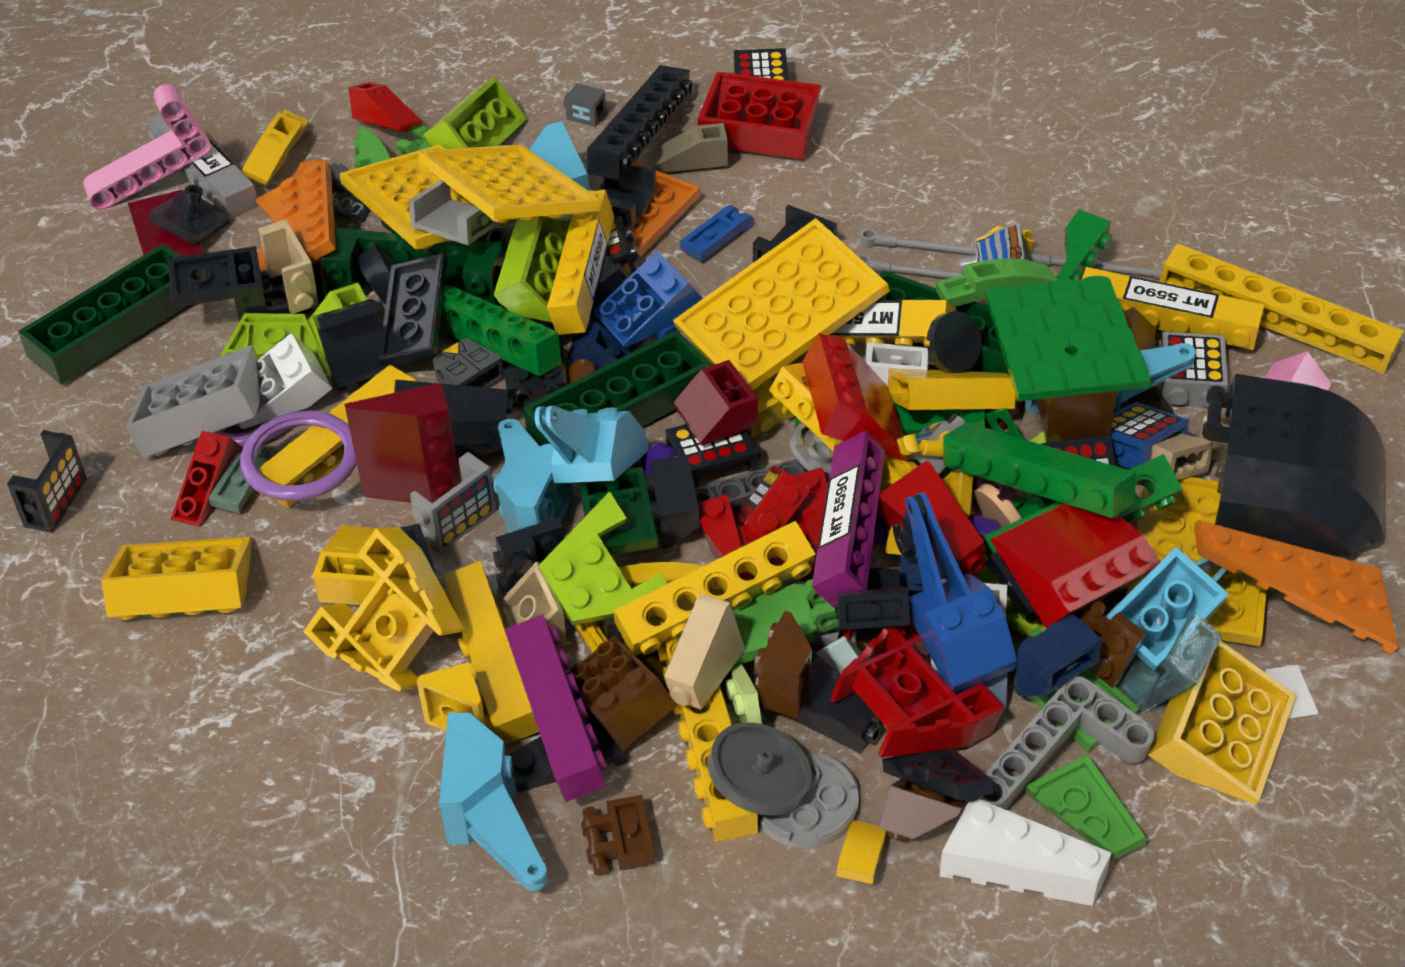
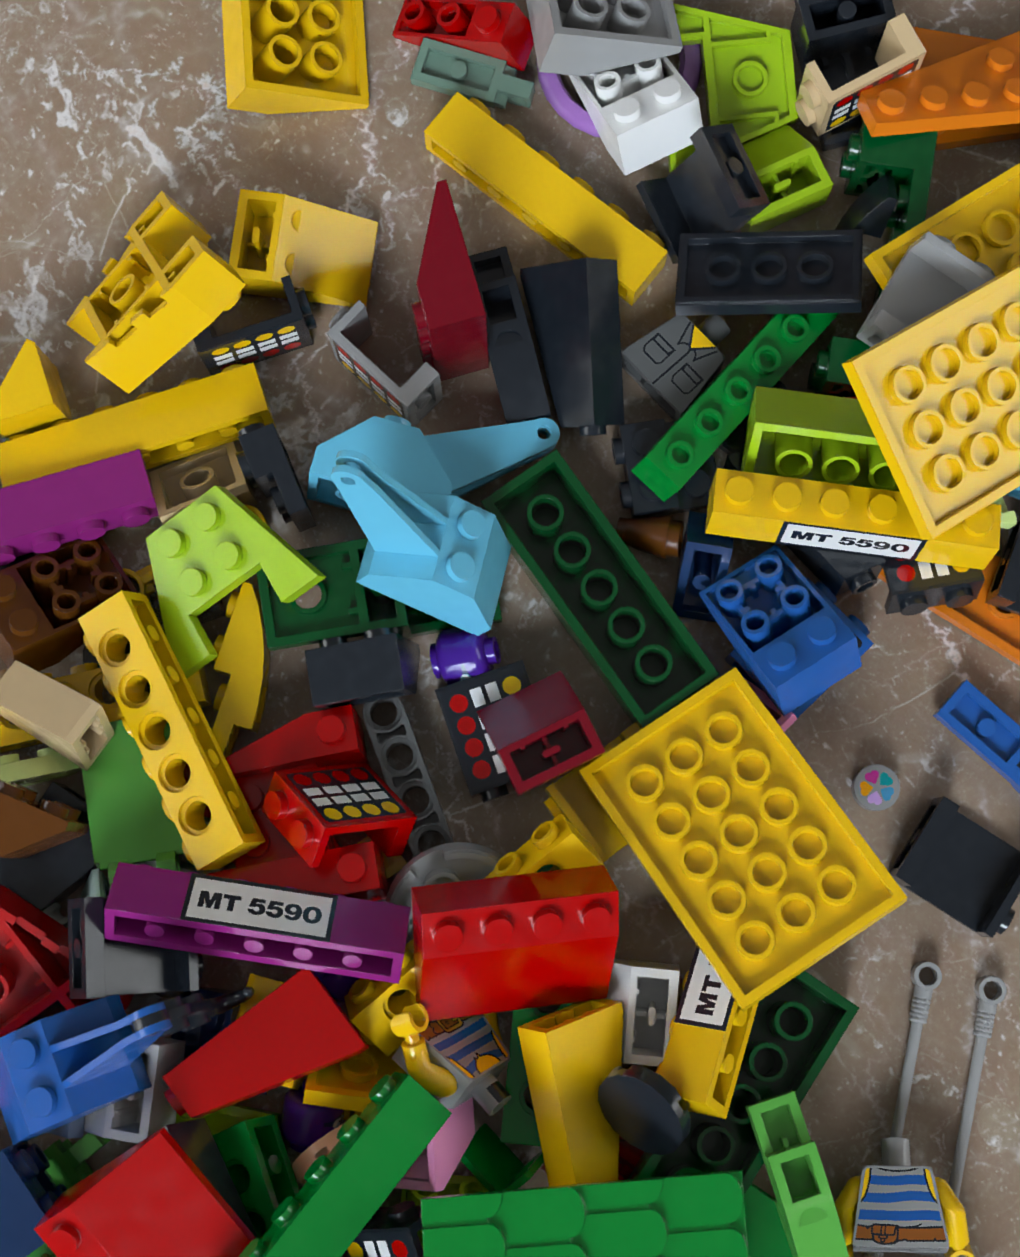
camera: 90 degrees right, 35 degrees up
(302, 491) = (477, 75): medium lavender wedge -> none

